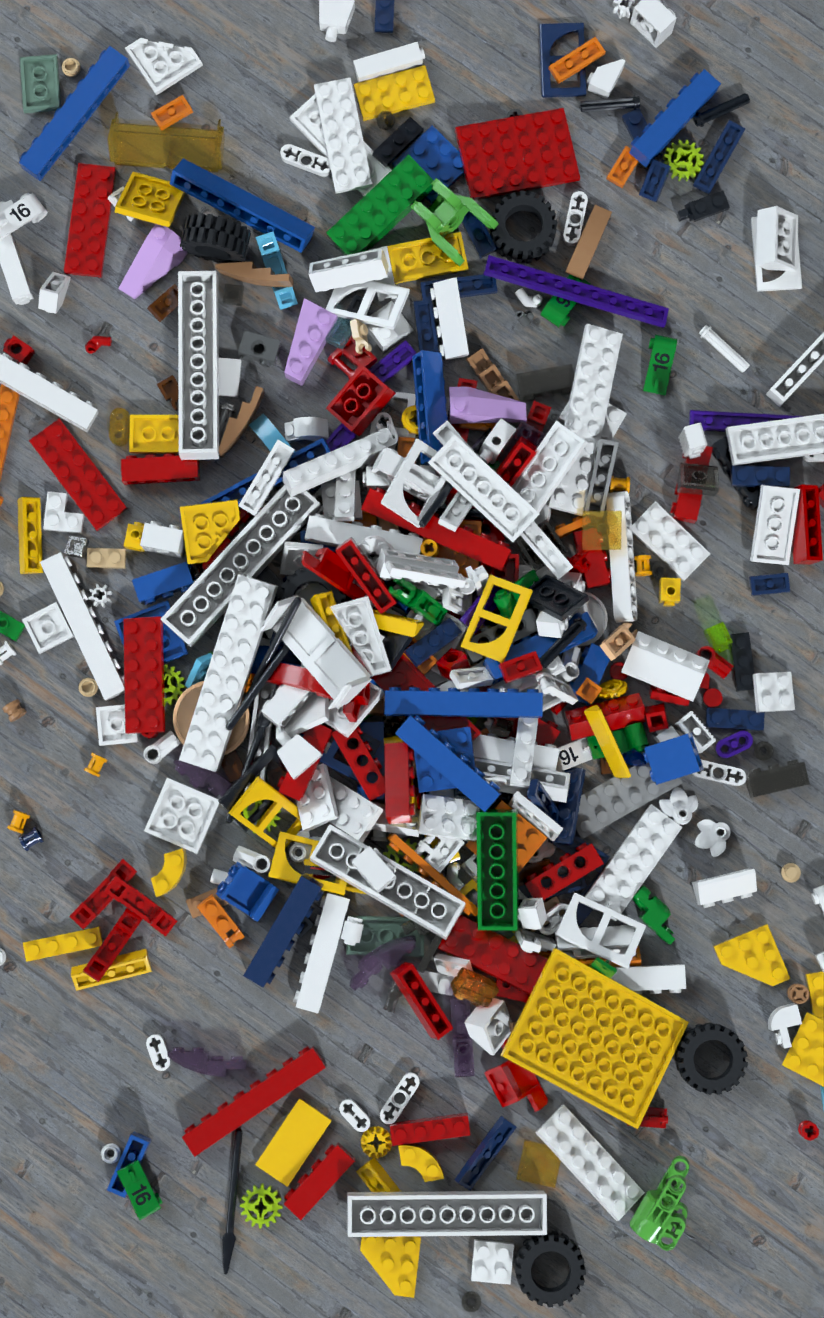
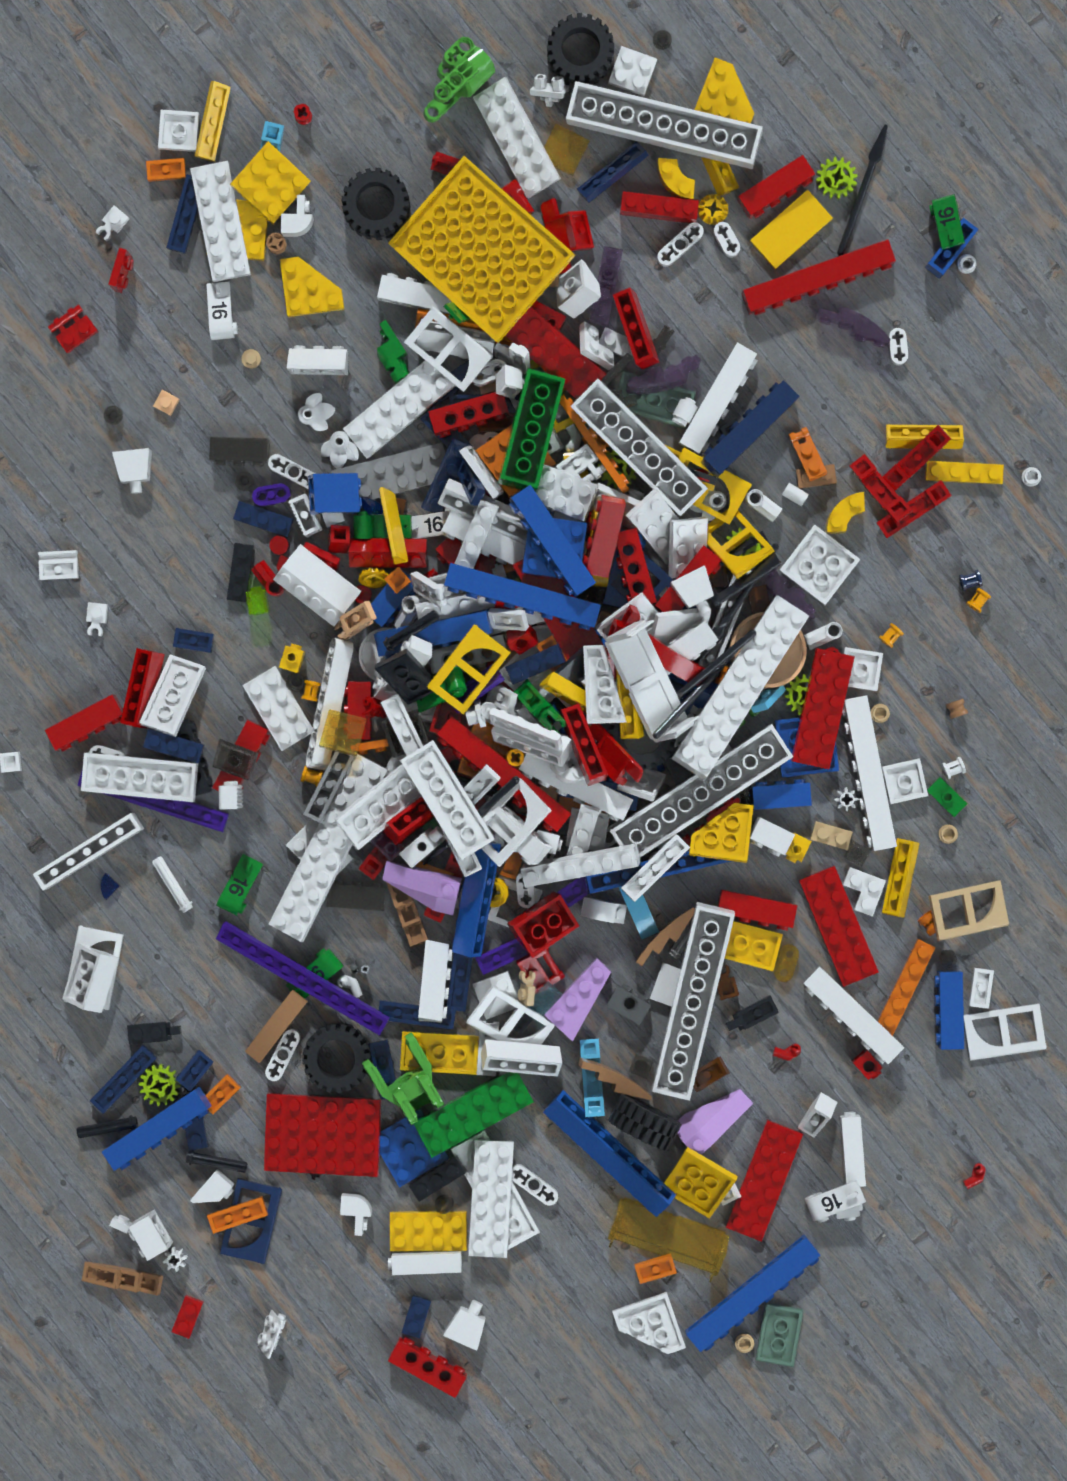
camera: 165 degrees left, 5 degrees up
(139, 369) = (753, 1014): none -> black hinge
(247, 891) = (775, 475): blue panel -> none
(374, 869) = (649, 460): white brick -> none
(464, 96) = (356, 1206): none -> white brick
(474, 987) = (582, 326): clear orange brick -> none
(501, 727) = (491, 565): clear smoke plate -> none
(520, 667) = (458, 616): red plate -> none
(570, 1217) = (549, 92): none -> white hips
(575, 1105) = (515, 191): none -> red piece
(683, 25) = (121, 1223): none -> white plate
(773, 692) = (219, 535): white plate -> none
(784, 332) = (108, 886): none -> clear blue tile

